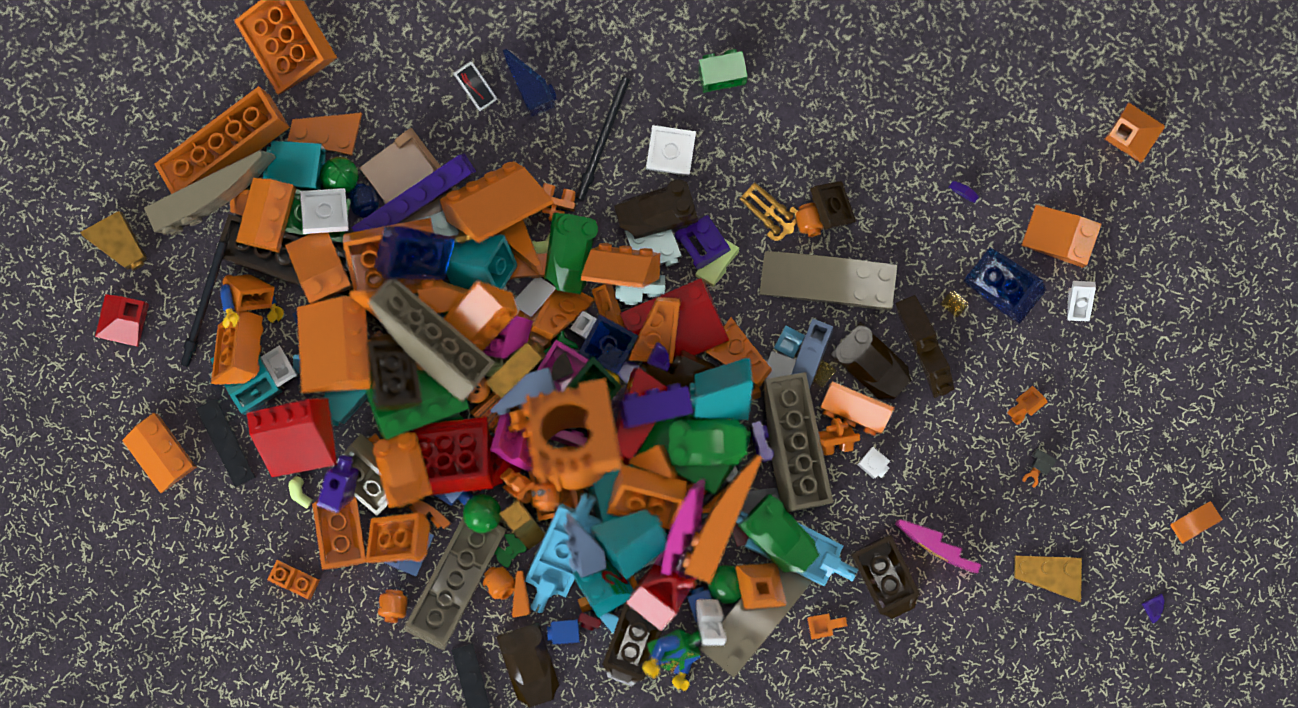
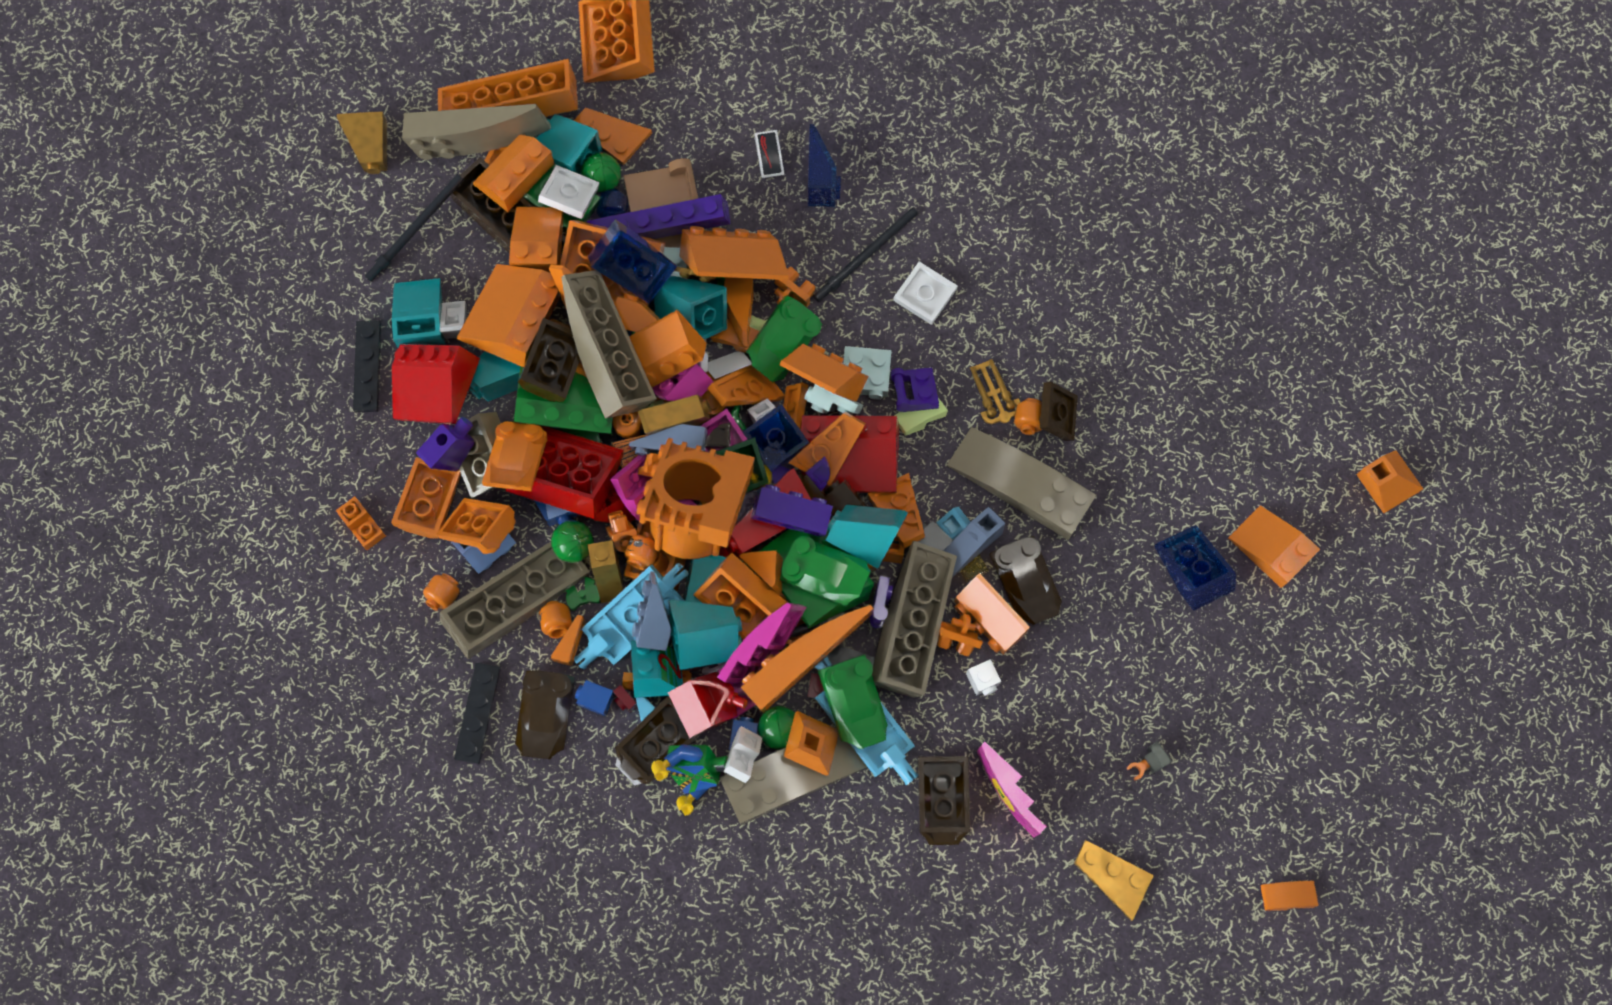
camera: 25 degrees right, 10 degrees down
(122, 320) = (333, 211): red slope -> none
(158, 452) = (300, 344): orange slope -> none
(237, 350) = (423, 281): orange slope -> none
(245, 294) = (459, 237): orange torso -> none
(297, 494) = (408, 441): yellowish green arm -> none
(424, 508) = (521, 516): orange slope -> none
(657, 210) = (885, 340): dark brown slope -> none
(722, 71) = (1010, 240): brick -> none
(822, 626) = (855, 817): orange plate -> none
(926, 345) = (1089, 588): dark brown arch -> none
(954, 303) = (1136, 561): clear yellow slope -> none
(964, 190) = (1194, 459): dark purple tile -> none
(1028, 403) = (1166, 692): orange plate -> none
(1080, 300) = (1265, 616): white slope -> none
(1154, 607) = (1207, 964): dark purple tile -> none

